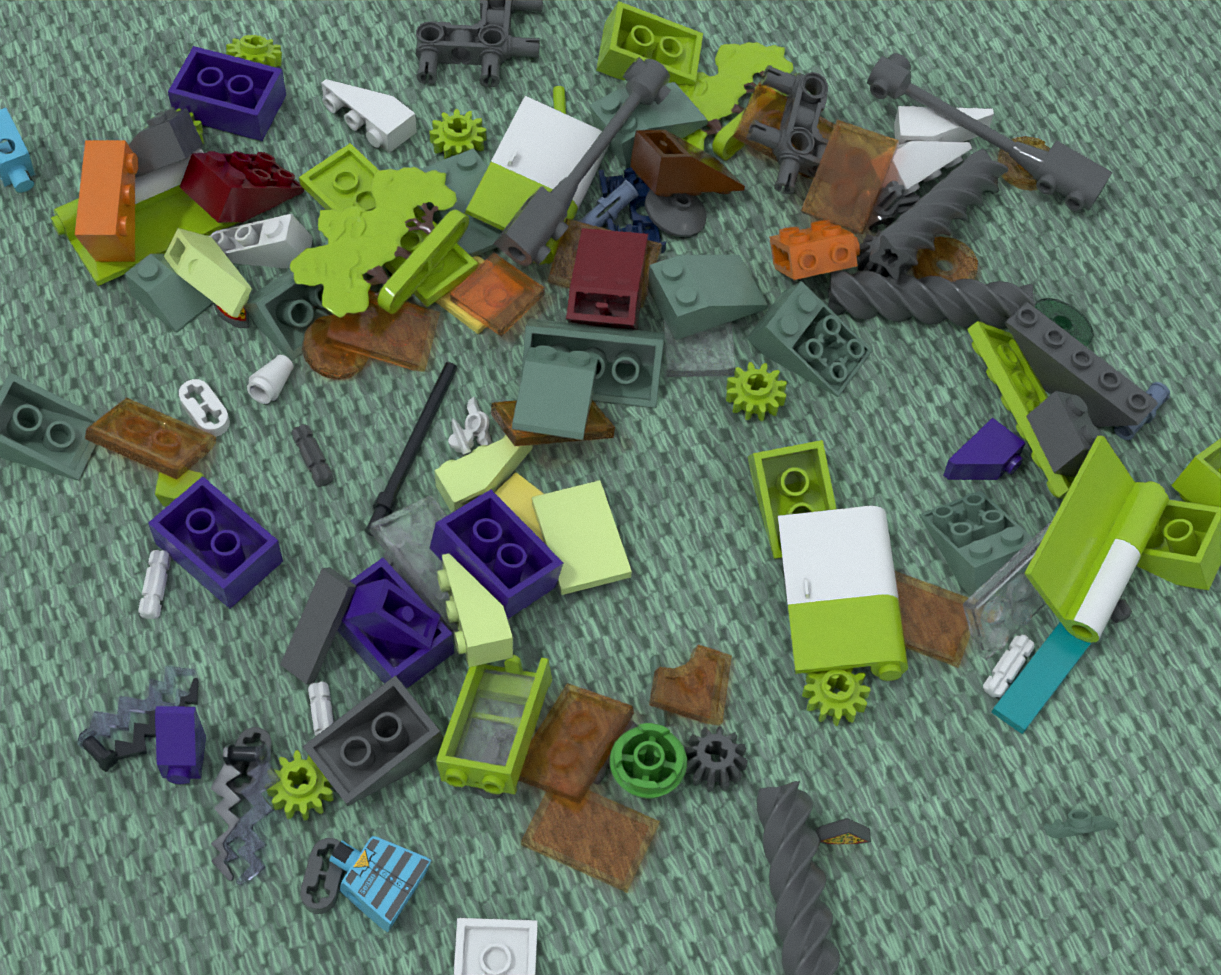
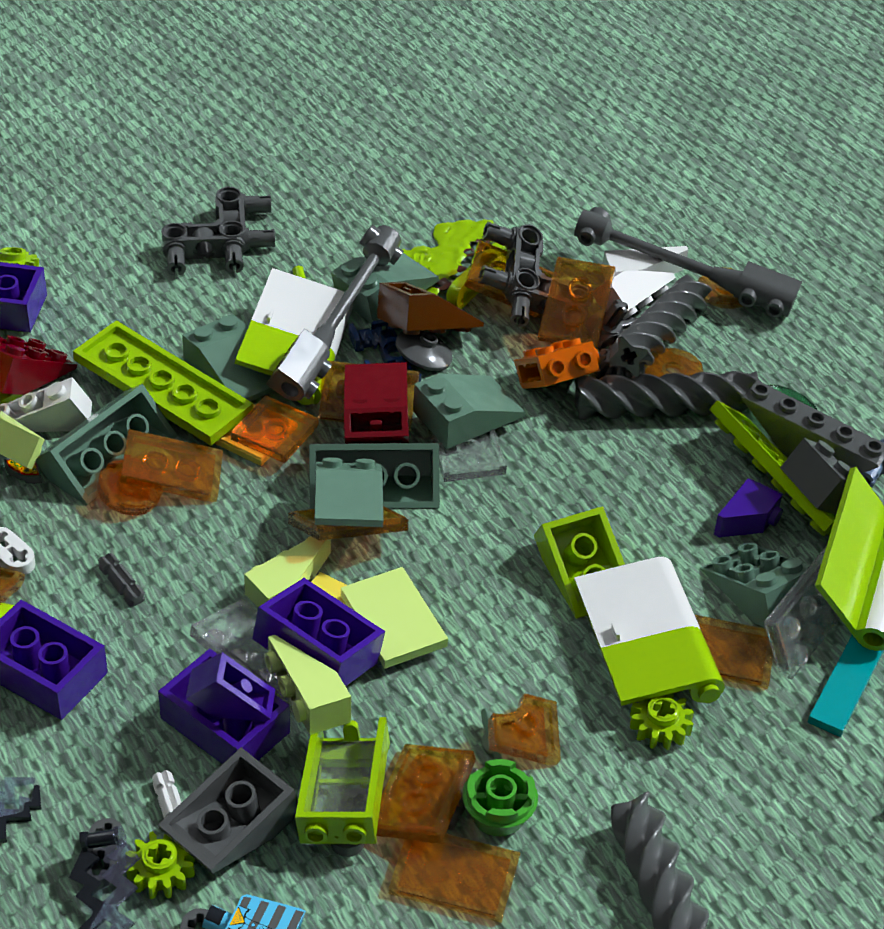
camera: 10 degrees left, 15 degrees down
(179, 743) = (32, 837): dark purple slope -> none
(270, 379) = (69, 521): white cone -> none
(318, 625) = (155, 715): dark grey tile -> none
(367, 239) = (148, 391): lime plant -> none
(386, 118) = (145, 302): white slope -> none
(387, 500) = (201, 608): black bar -> none
(457, 134) = (212, 307): lime gear -> none
(461, 438) = (262, 549): white piece -> none
(478, 423) = (275, 535): white piece -> none
(624, 194) = (375, 340): sand blue pin -> none
(637, 34) = (354, 216): lime slope -> none
(729, 762) = (562, 790): dark grey gear -> none
(756, 391) = (529, 482): lime gear -> none
(810, 340) = (567, 437): sand green slope -> none
(843, 832) = (698, 839): dark grey tile -> none
(1008, 666) = (813, 680): white axle -> none

